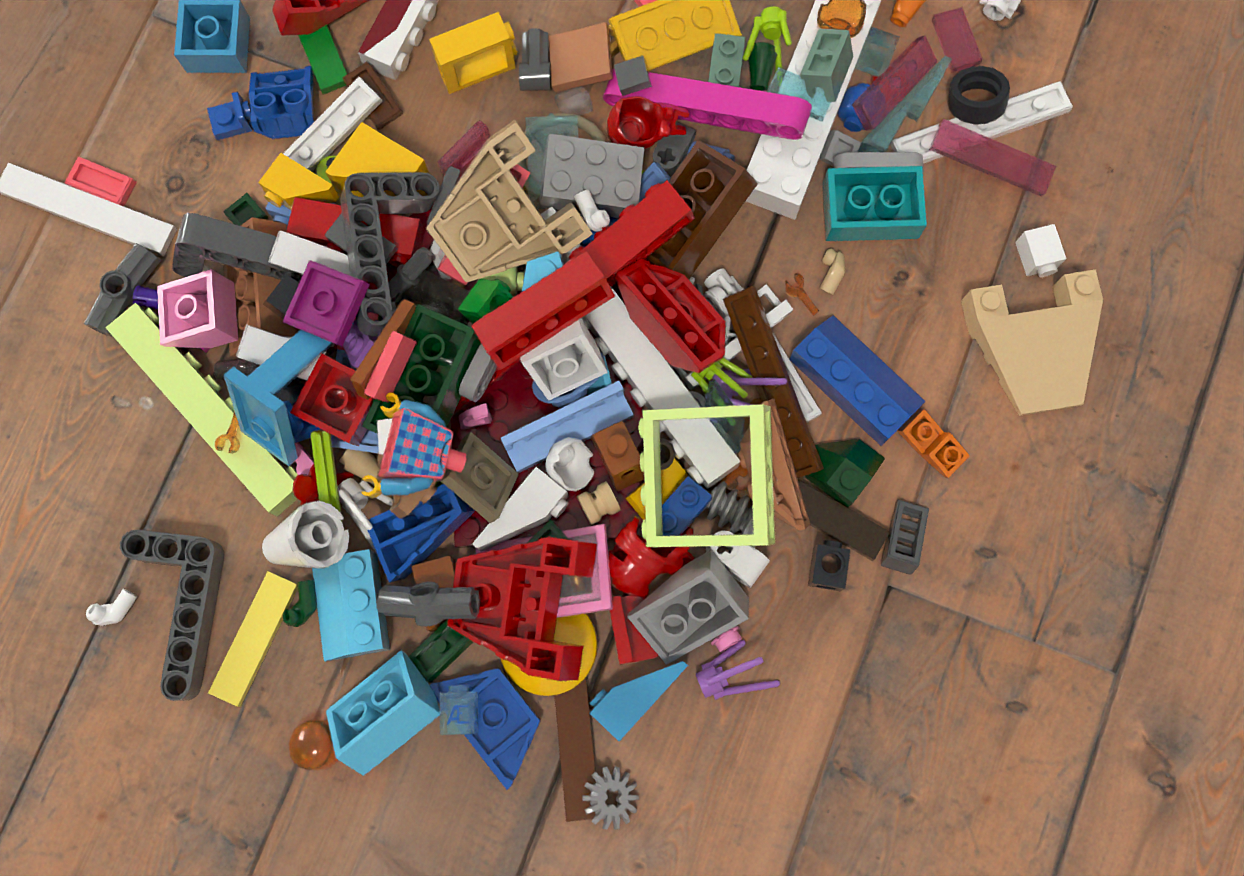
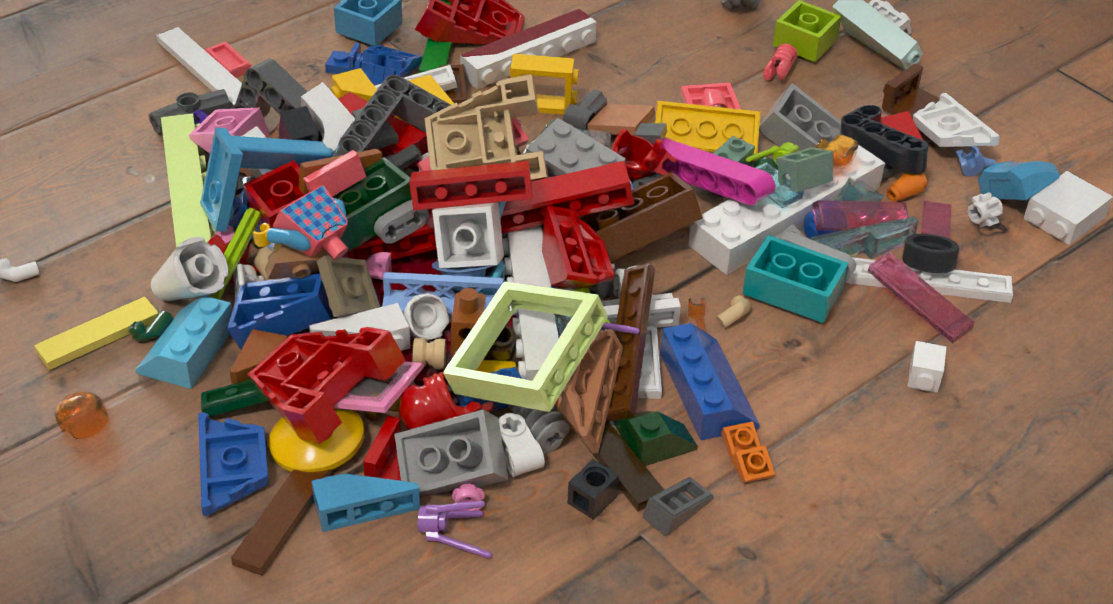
camera: 25 degrees right, 35 degrees down
(186, 602) = (95, 272): dark grey beam -> none
(231, 435) = (185, 201): clear orange hand -> none
(326, 303) = (319, 126): magenta tile -> none
(381, 714) = (147, 412): medium azure slope -> none
(428, 603) = (246, 344): dark grey piece -> none
(458, 711) = (208, 430): clear light blue brick -> none
(593, 217) = (555, 166): white arm -> none
(598, 797) = (272, 565): light grey gear -> none
(1043, 352) = (887, 431): tan wedge -> none

